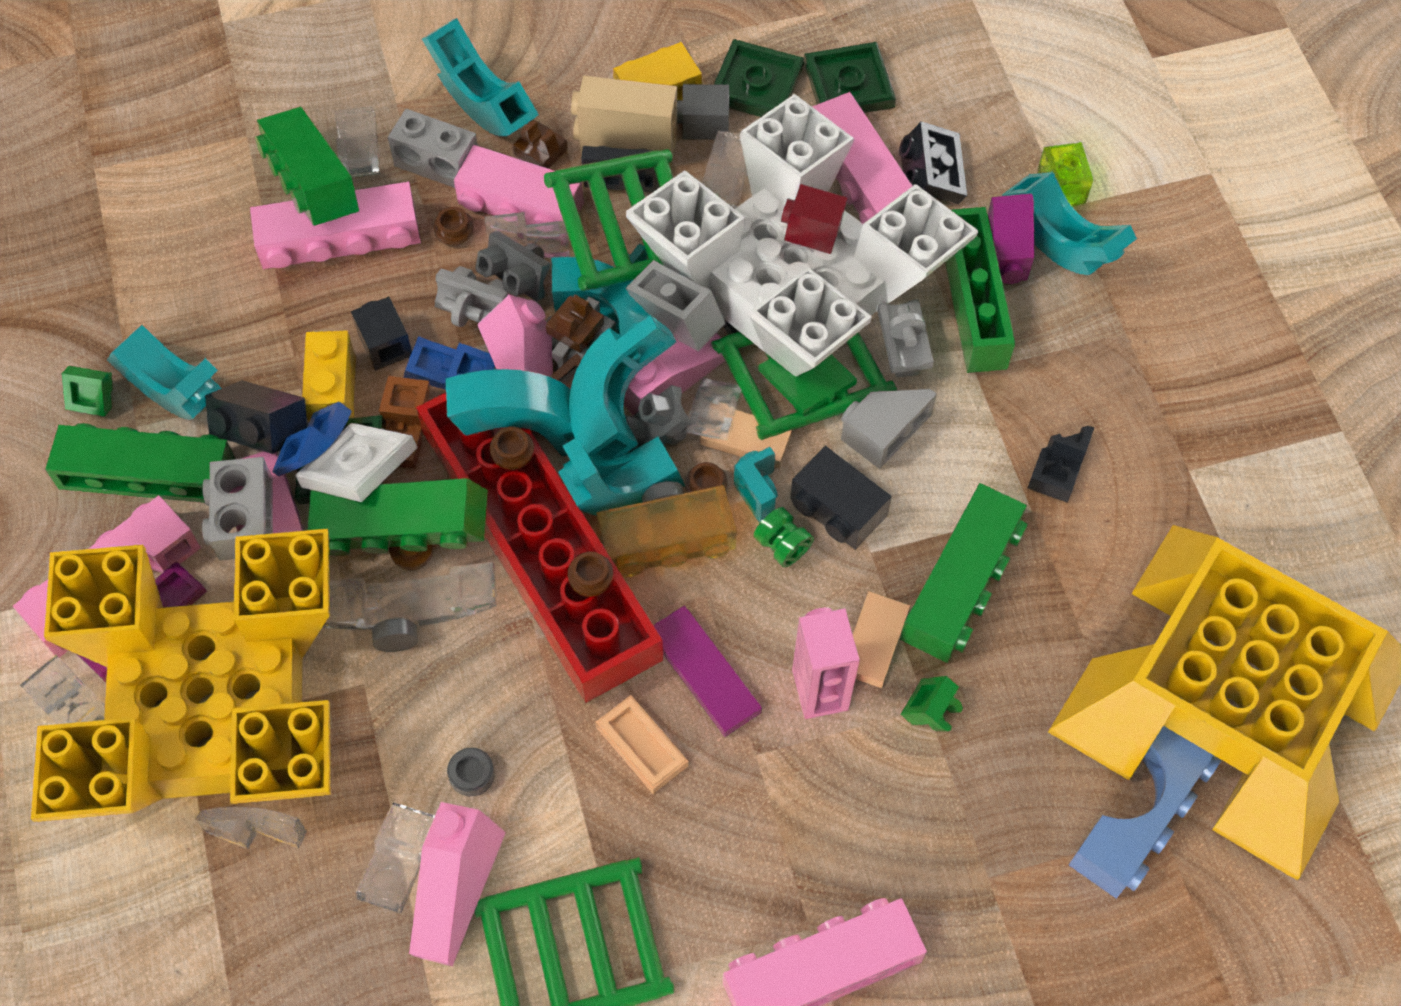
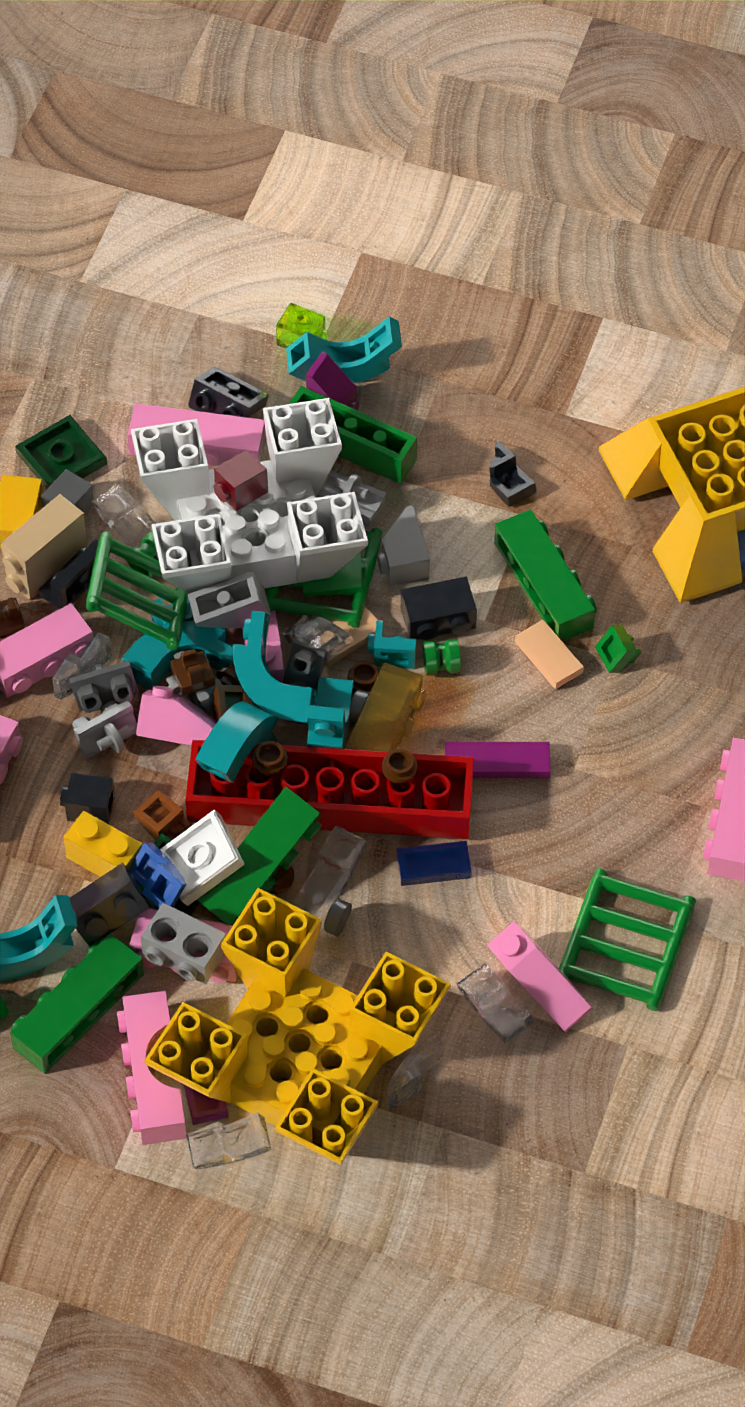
camera: 55 degrees left, 5 degrees down
(437, 362) = (152, 773): blue slope -> none
(453, 226) = (30, 709): reddish brown plate -> none
(471, 772) = (466, 930): dark grey tile -> none
(531, 687) = (433, 863): none -> clear blue tile
(642, 744) = (520, 824): light nougat tile -> none
(825, 662) = (558, 678): bright pink brick -> none
(852, 70) = (109, 400): dark green tile -> none

